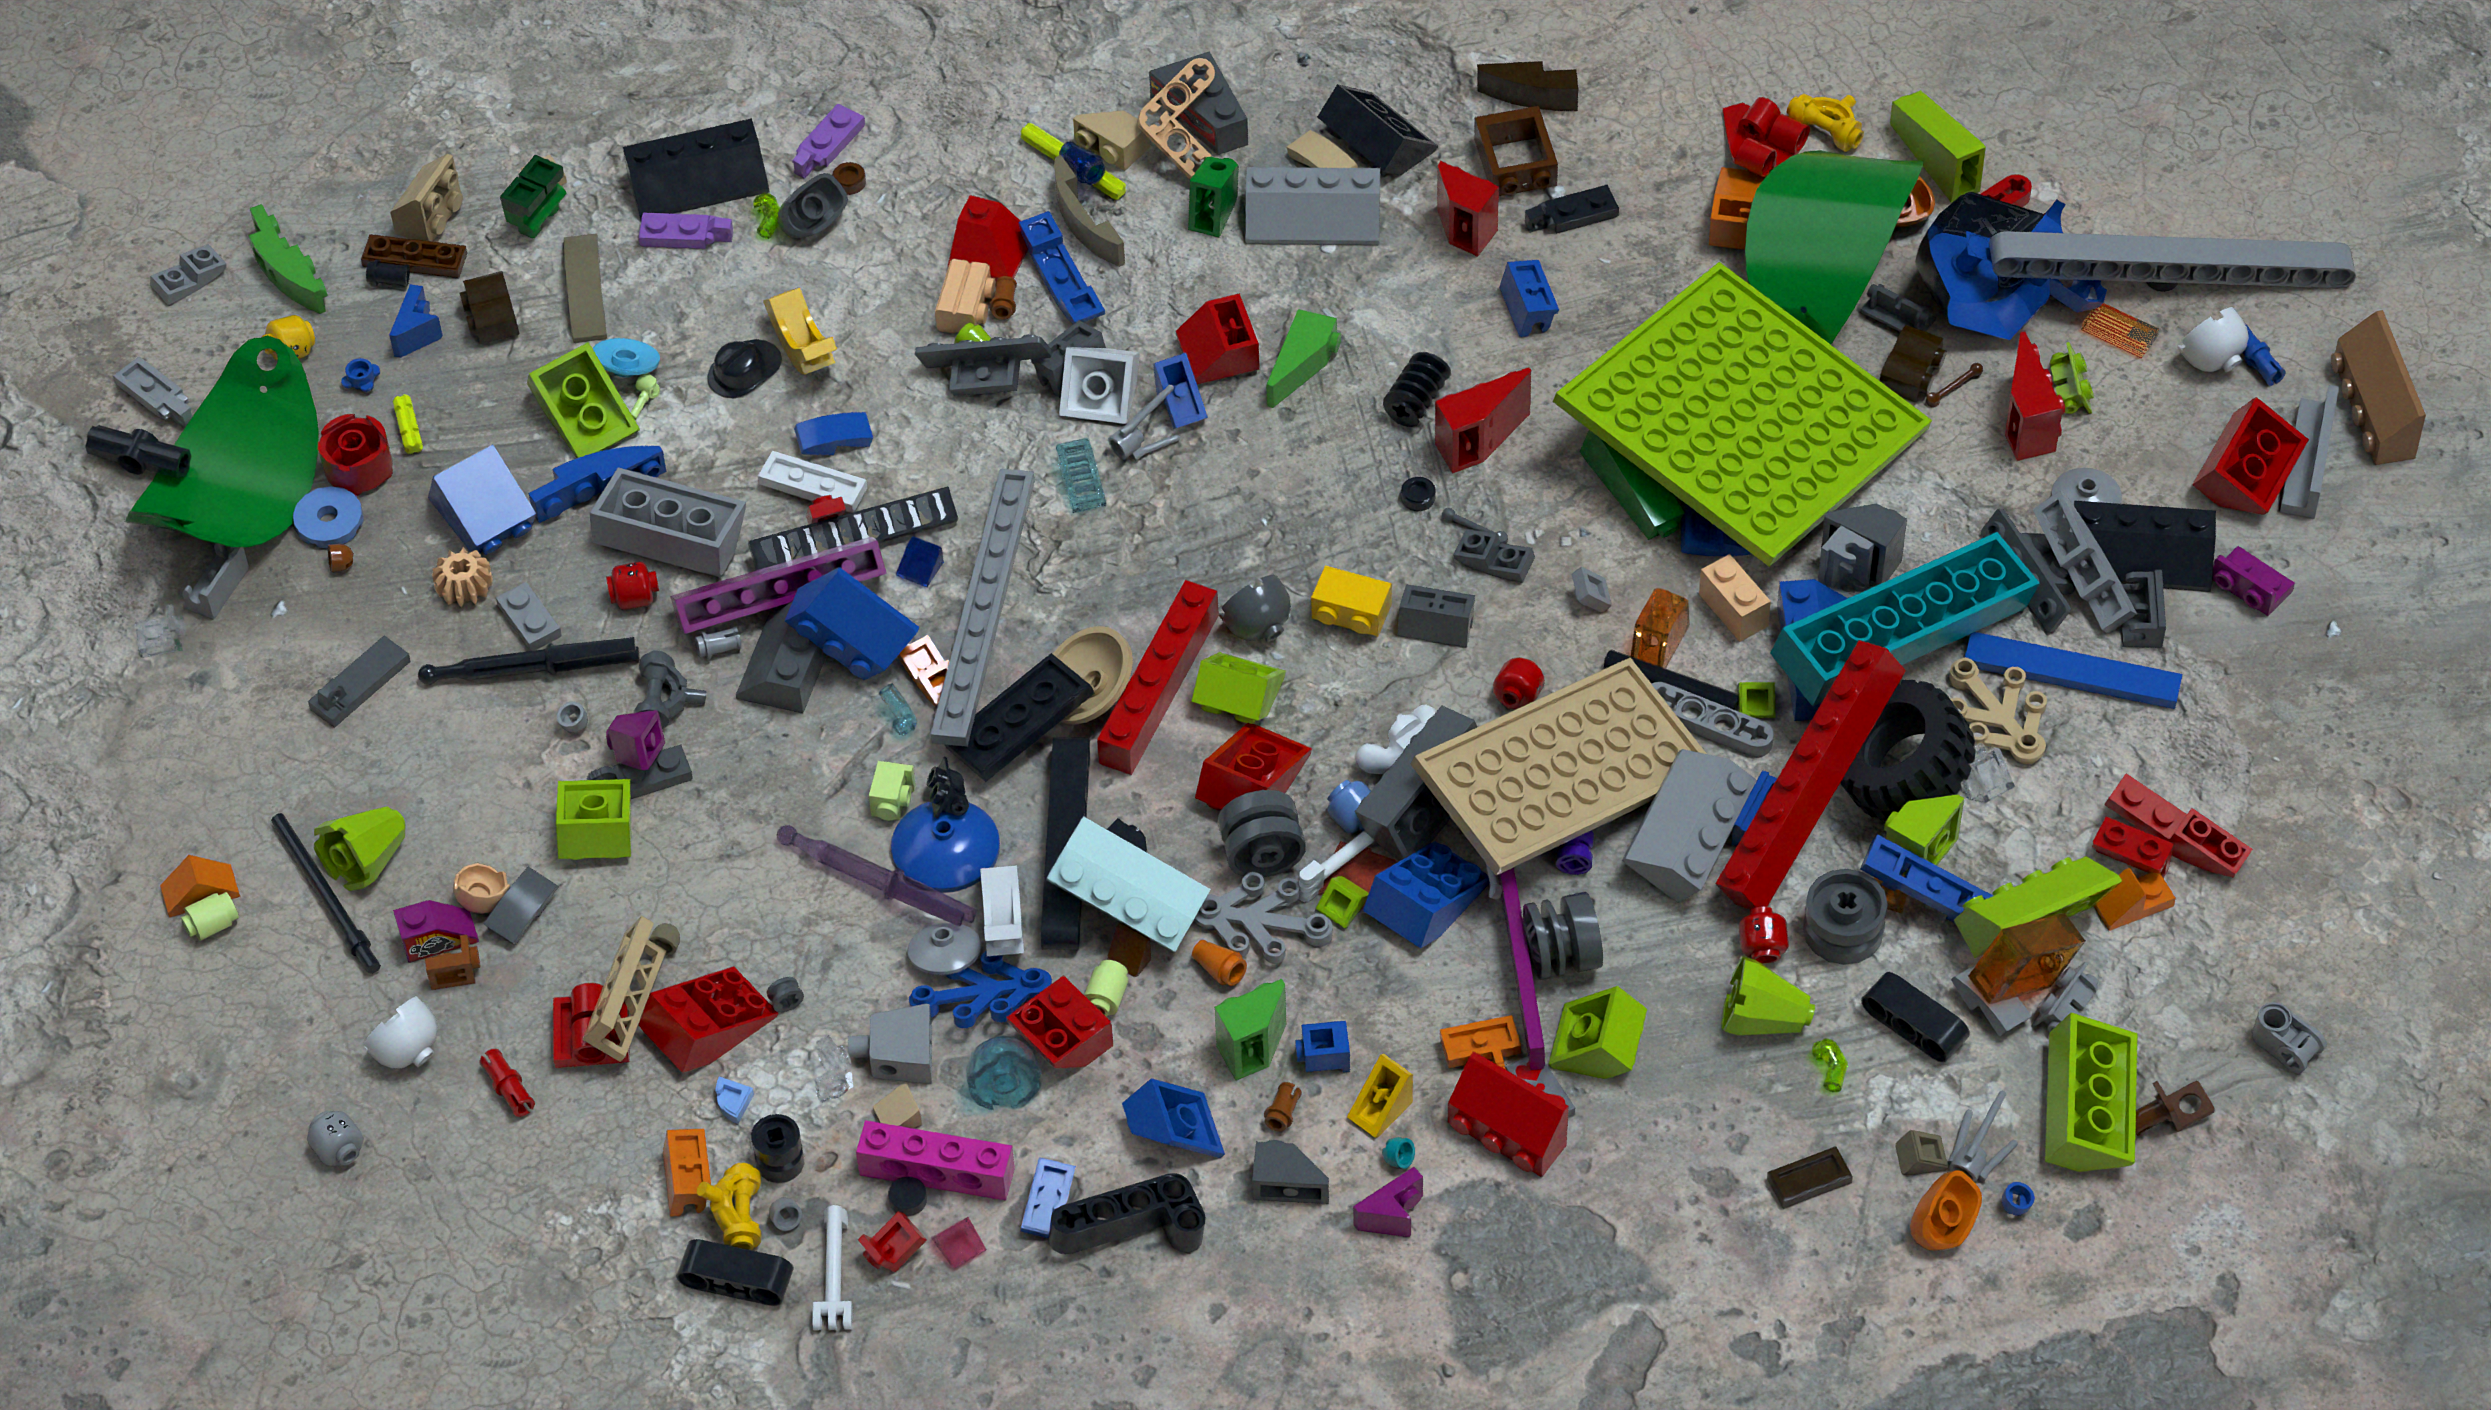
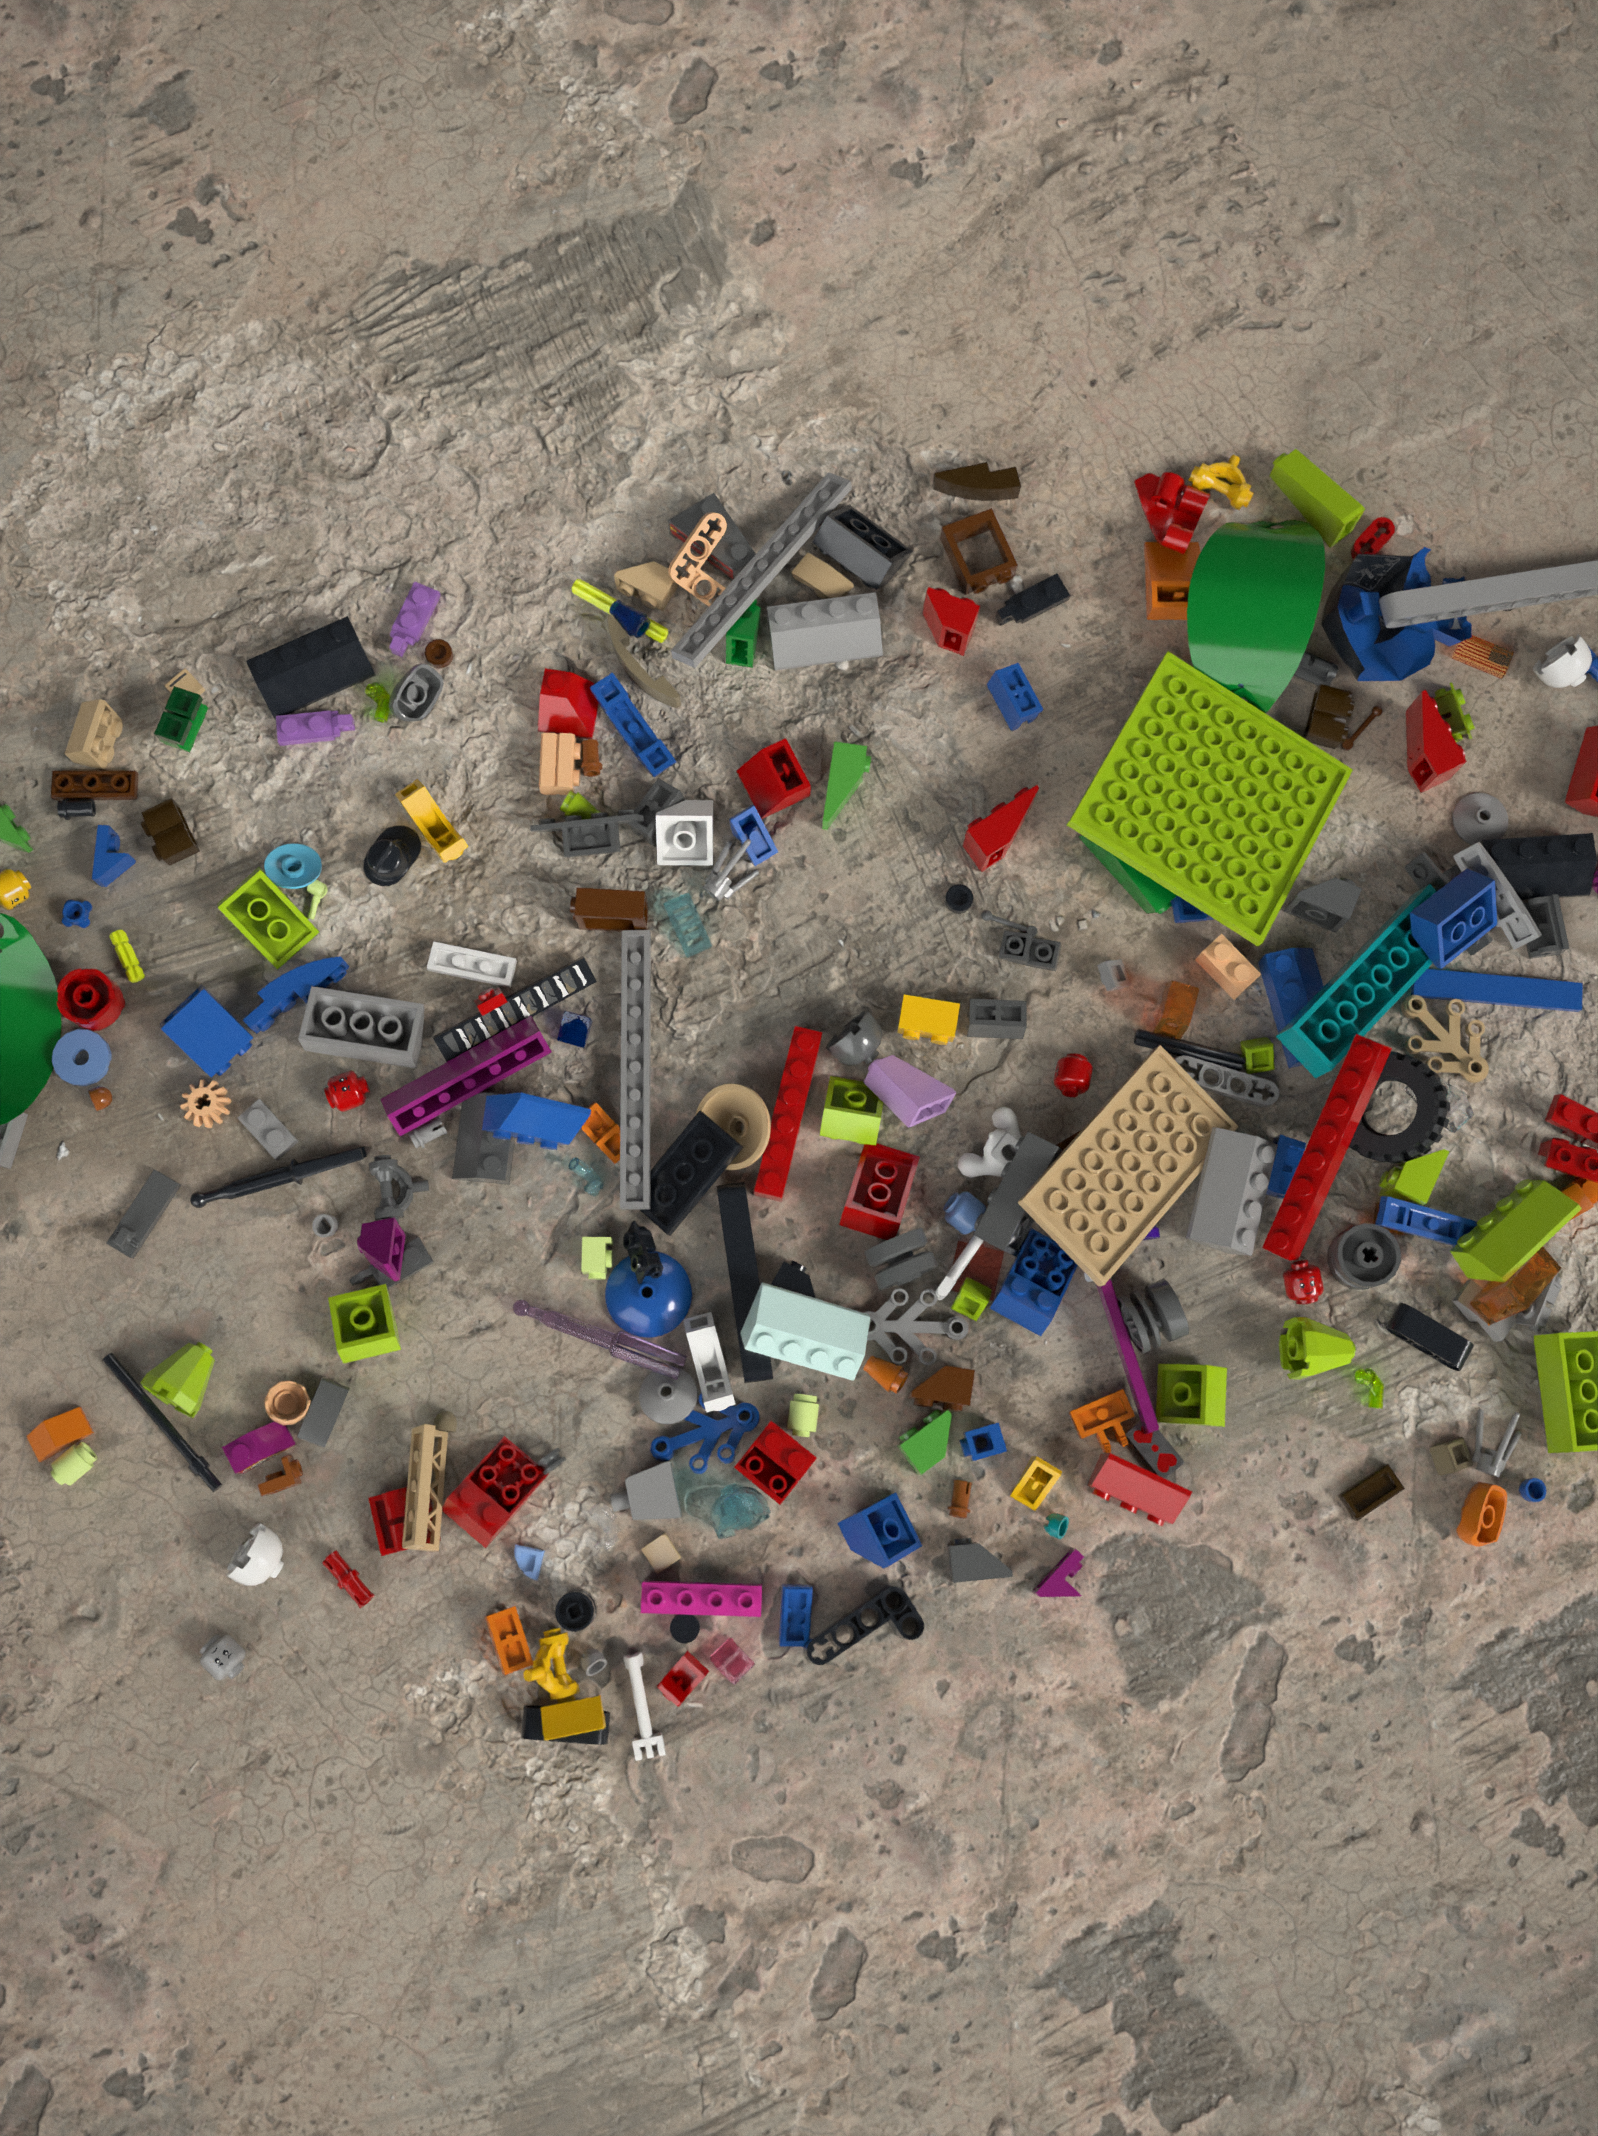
camera: 15 degrees left, 25 degrees up
(584, 288) = (242, 795): dark tan slope -> none
(746, 1252) = (572, 1717): none -> yellow slope
(827, 432) = (478, 912): blue slope -> none
(989, 423) = (609, 909): none -> reddish brown window
(1130, 949) = (813, 1378): reddish brown slope -> none
(1245, 128) = (761, 570): none -> light grey plate
(1290, 958) = (948, 1387): none -> reddish brown slope
(1311, 669) = (907, 1090): none -> lavender slope
(1416, 388) = (939, 800): black piece -> none
(1846, 561) = (1314, 921): light grey hinge -> none
(2019, 563) = (1455, 917): none -> blue slope

